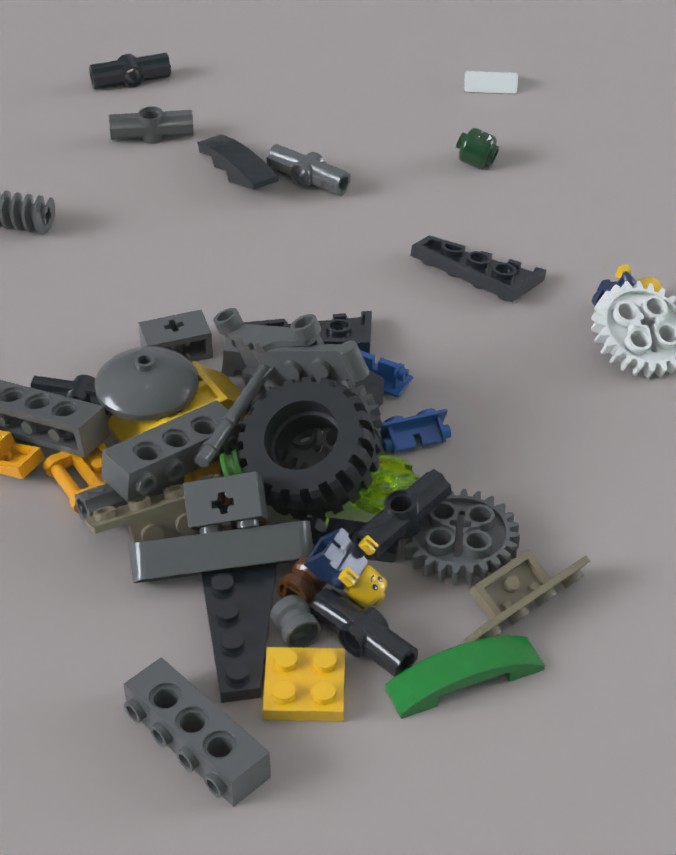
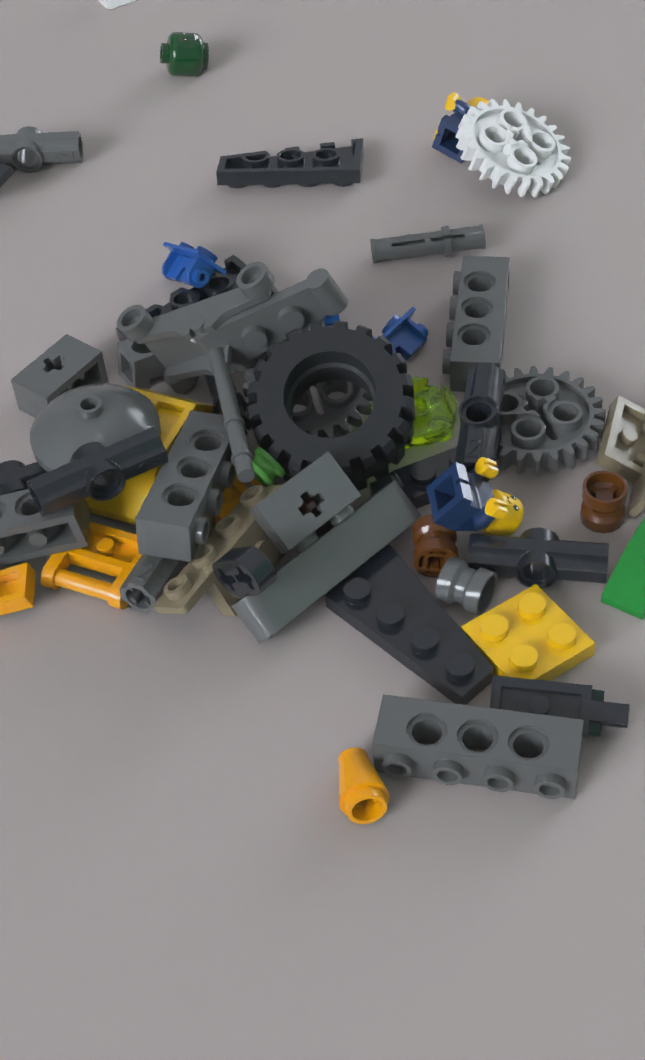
camera: 30 degrees left, 5 degrees up
(99, 712) = (361, 787): none -> light orange cone
(111, 407) = (97, 471): none -> black piece
(141, 524) = (244, 571): none -> black beam
(283, 742) = (559, 700): none -> black hinge
(330, 303) = (190, 265): none -> blue hinge
(447, 619) = (603, 501): none -> reddish brown wheel
(493, 443) = (478, 317): none -> dark grey brick
(527, 374) = (428, 243): none -> dark grey pin

